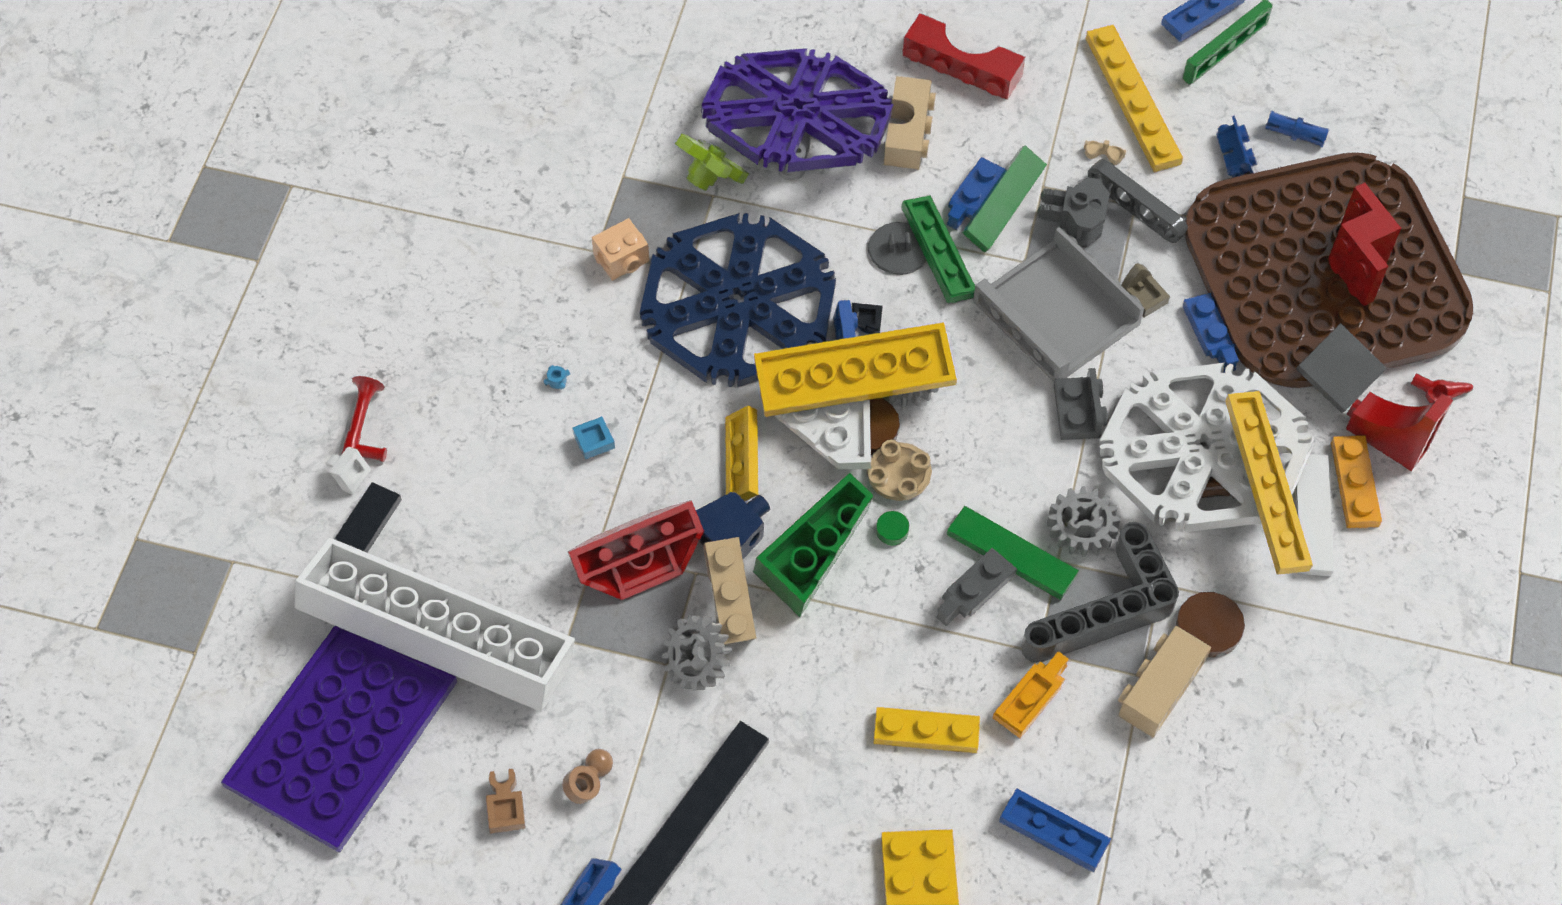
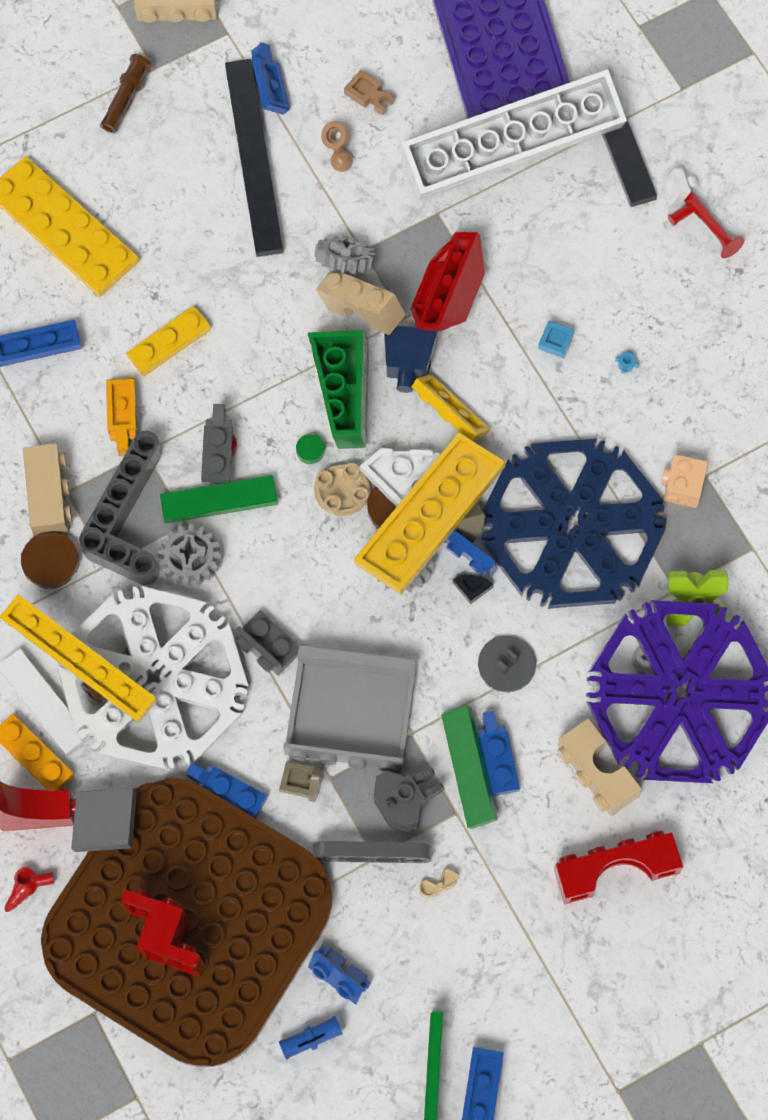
camera: 140 degrees right, 10 degrees up
(939, 249) = (476, 683): green tile -> none
(1134, 98) = (462, 957): yellow plate -> none

